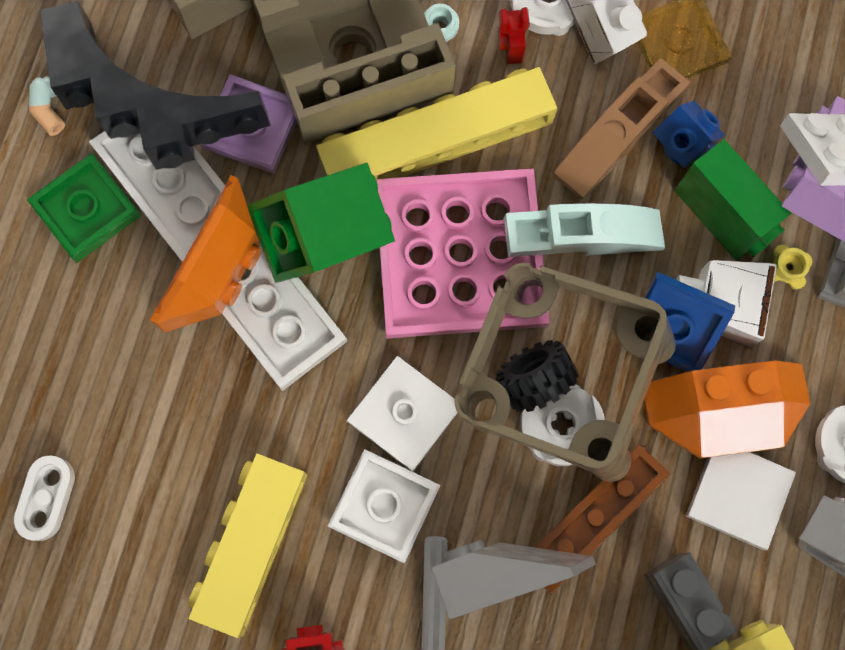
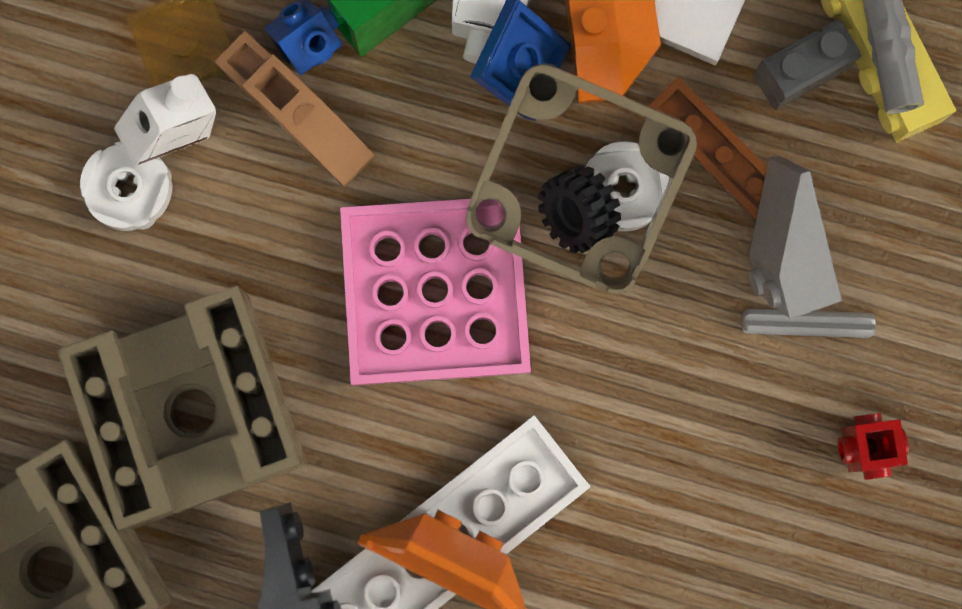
camera: 90 degrees left, 5 degrees up
(247, 547) = (759, 517): light yellow brick -> none
(265, 146) = (245, 536): lavender plate -> none
(321, 223) = (414, 440): green slope -> none
(384, 506) = (713, 374): white plate -> none
(404, 413) = (613, 353): white plate -> none
(444, 14) = (148, 300): light aqua plate -> none
(444, 129) = (295, 316): light yellow brick -> none
(512, 33) = (178, 226): red plate -> none
(584, 228) = (416, 155): light aqua slope -> none

